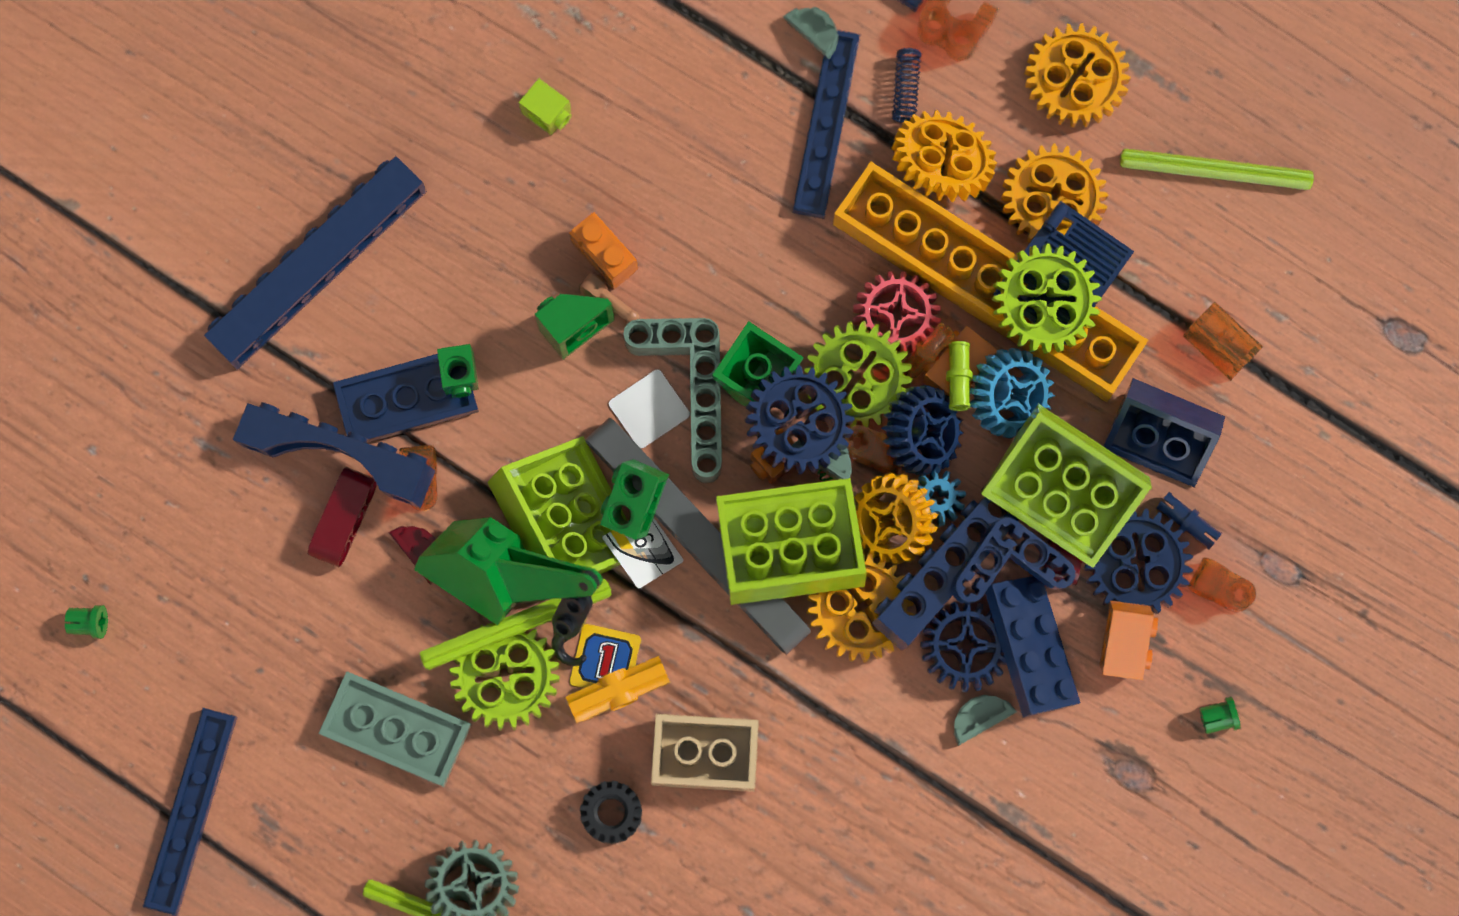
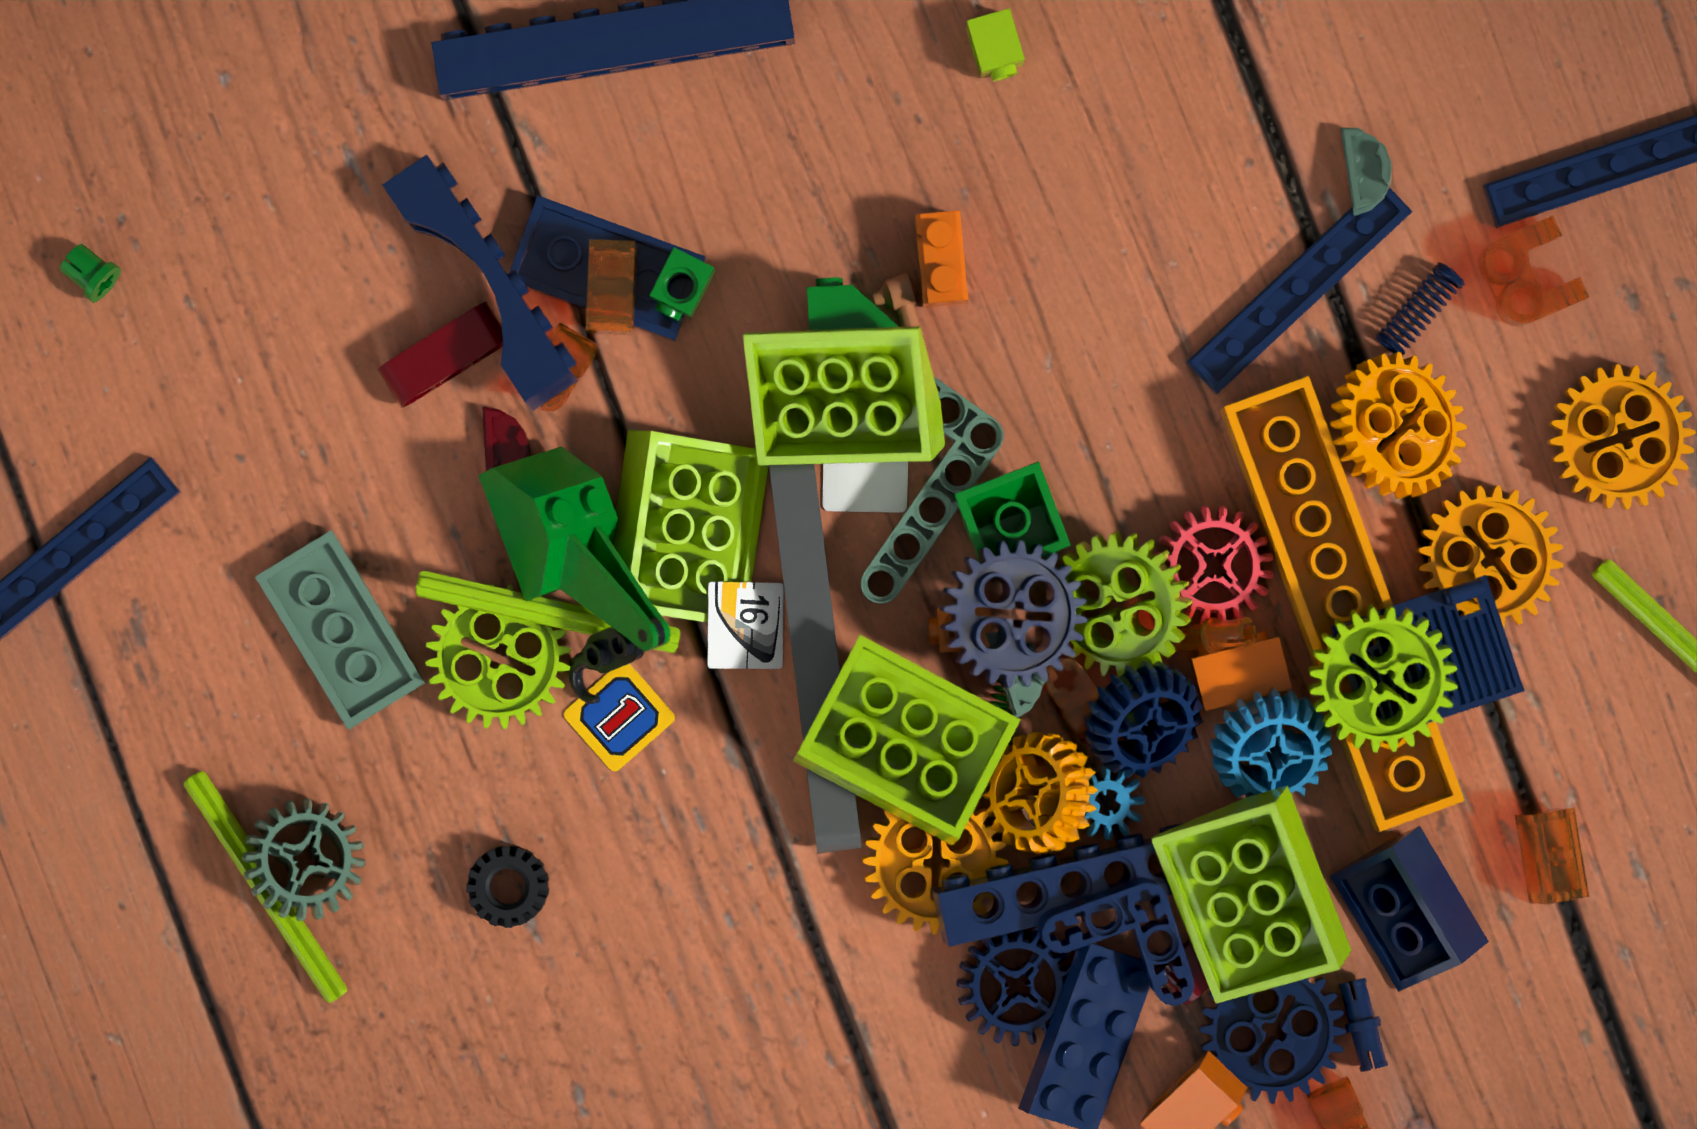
camera: 35 degrees right, 10 degrees up
(416, 401) = (611, 287): none -> clear orange brick
(601, 363) = (843, 396): none -> lime slope
(617, 689) = (608, 760): light orange piece -> none
(640, 503) = (774, 577): green brick -> none
(705, 752) = (651, 898): tan brick -> none
(959, 376) = (1226, 690): lime pin -> none
(979, 715) = (977, 1068): sand green tile -> none

